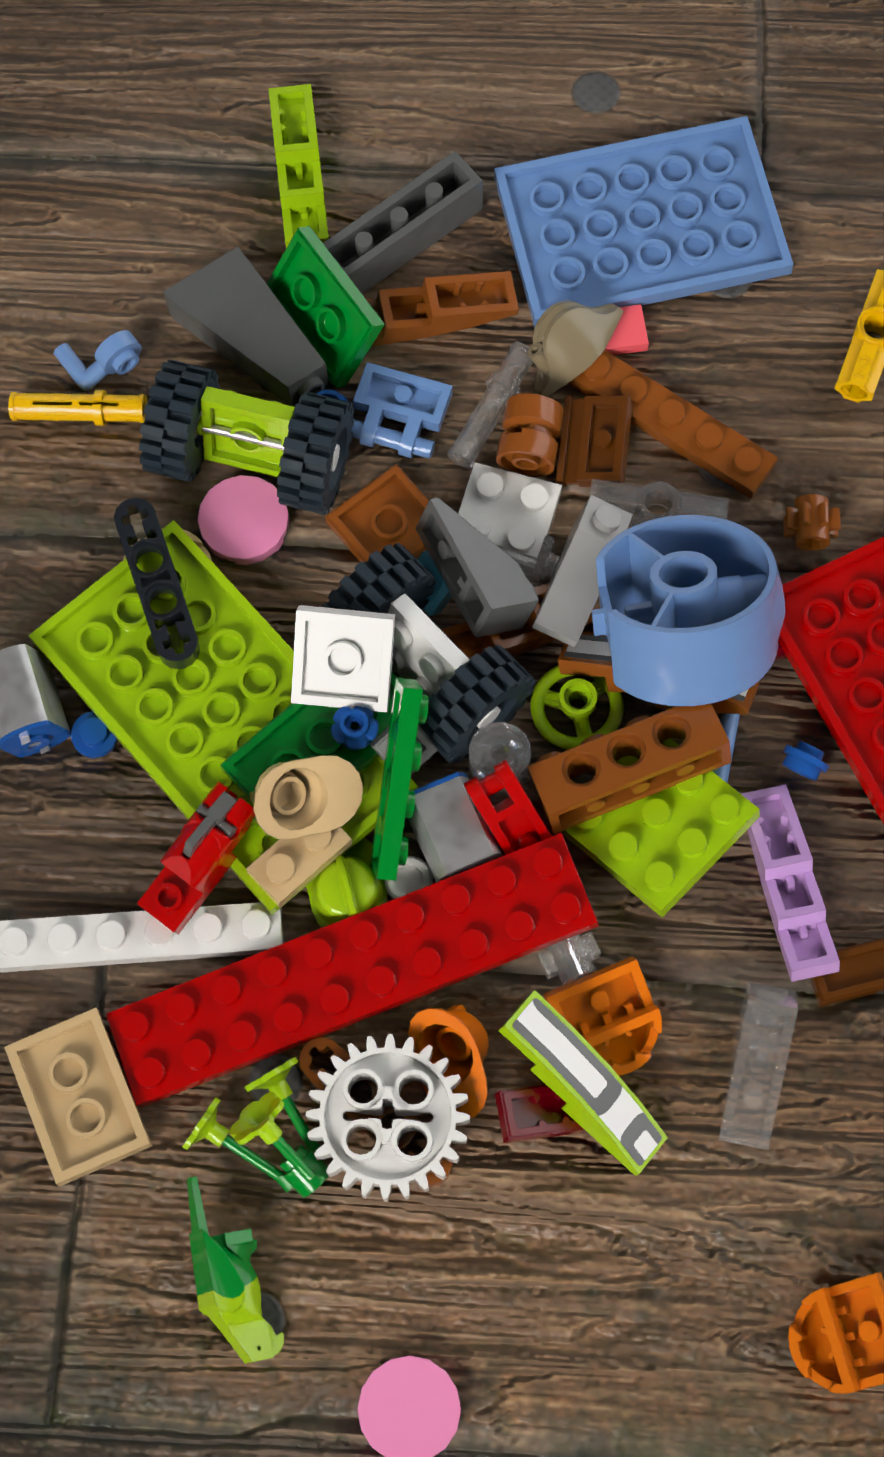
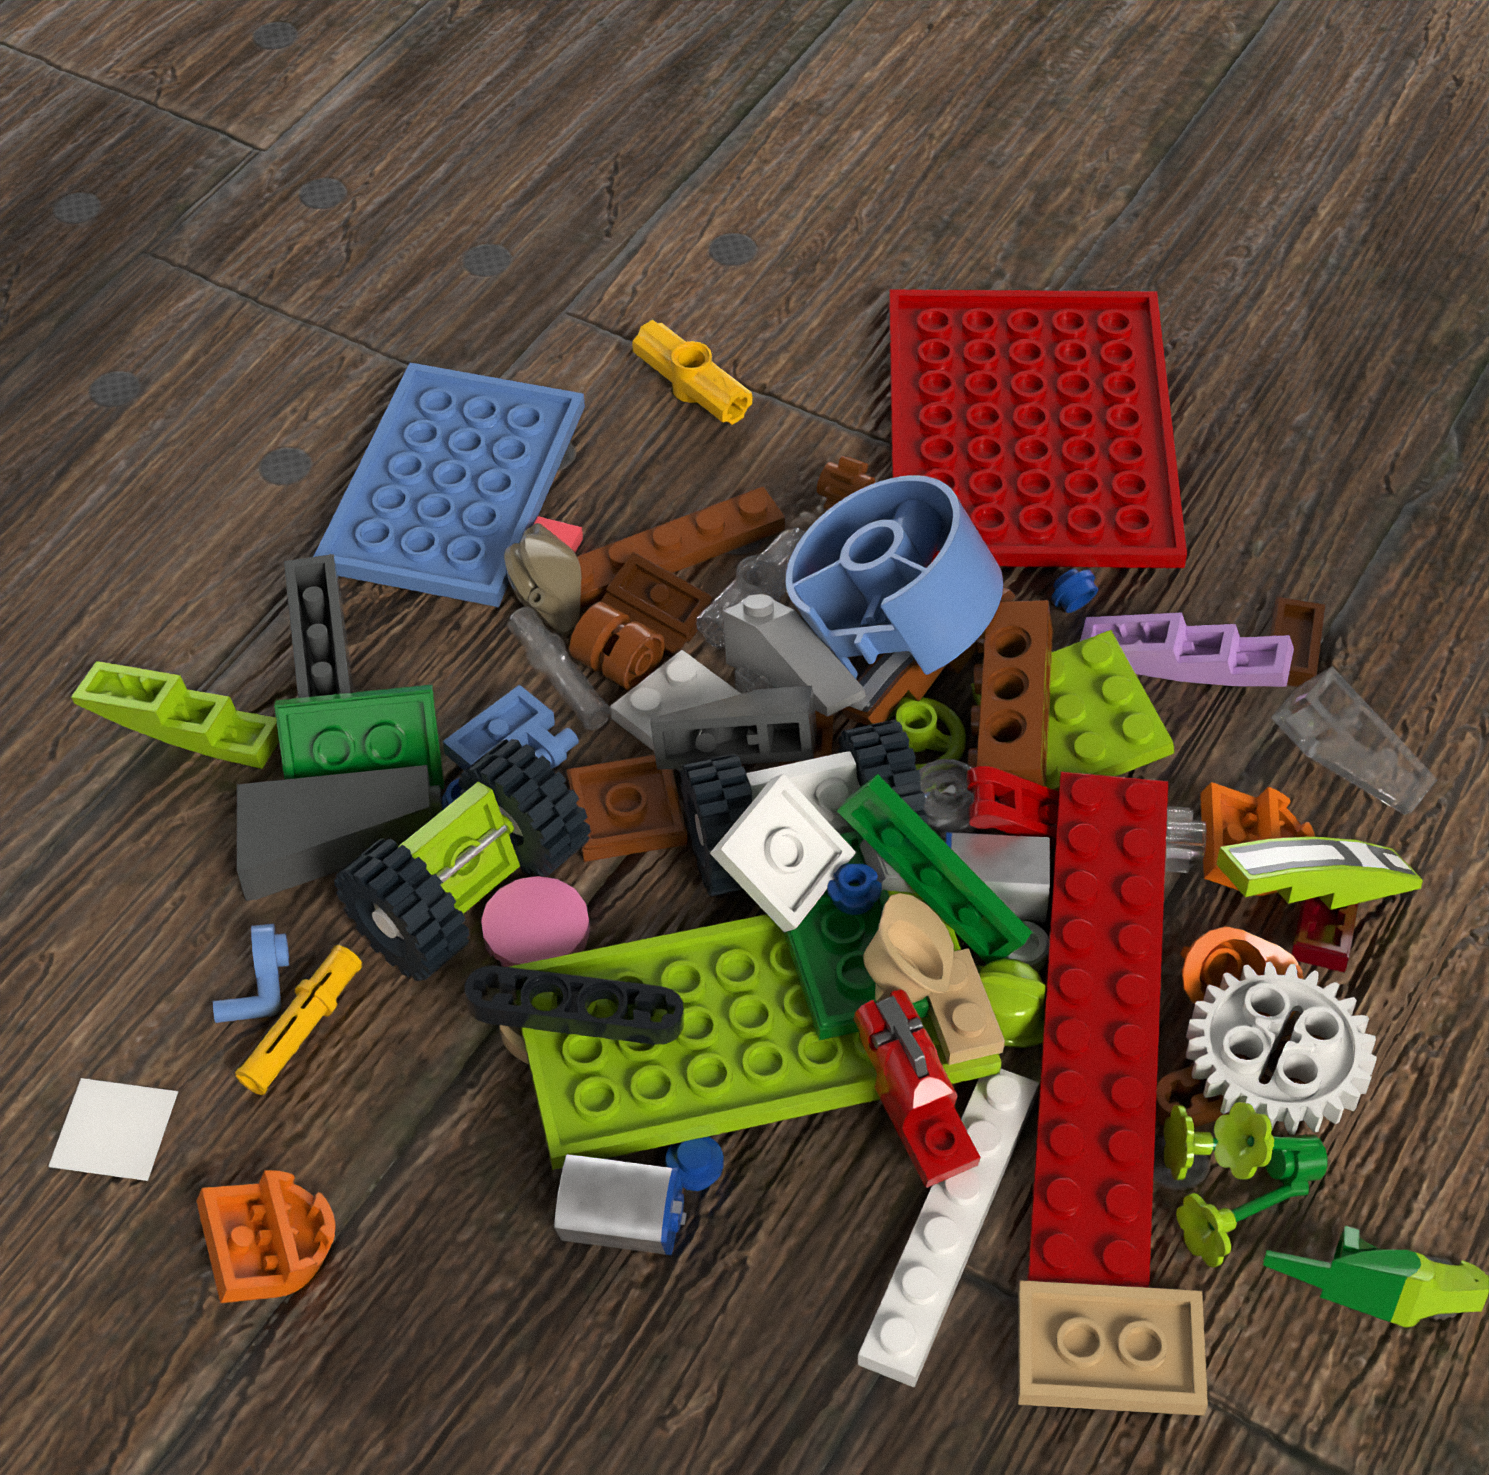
camera: 65 degrees left, 20 degrees down
(444, 305) = (431, 644): dark orange slope -> none

